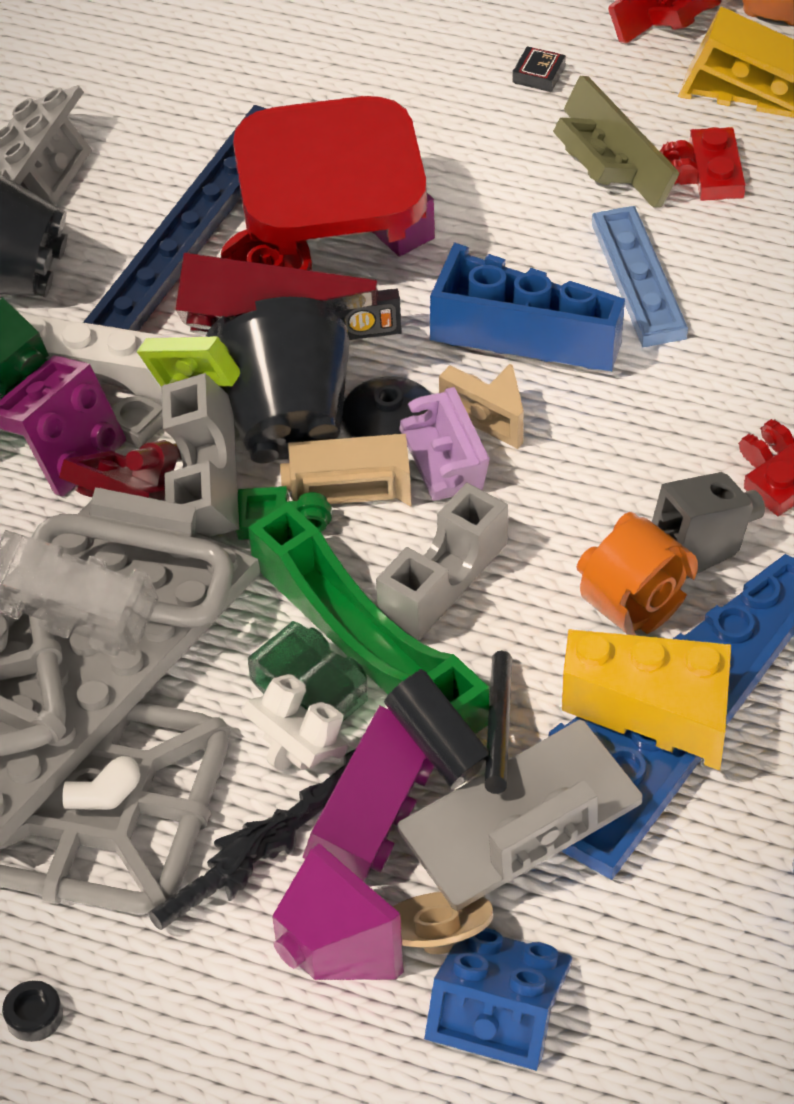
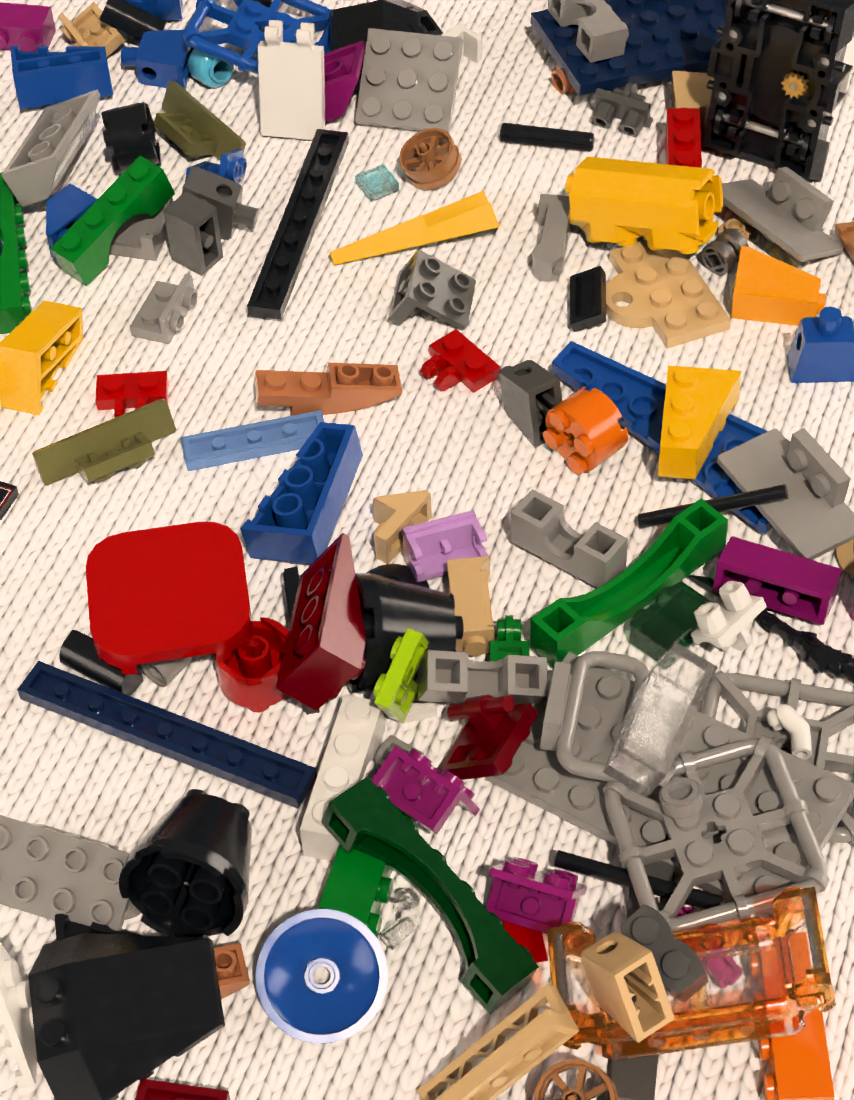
camera: 90 degrees left, 0 degrees up
(437, 728) = (741, 523): black brick -> none
(718, 324) = (338, 390): none -> nougat slope

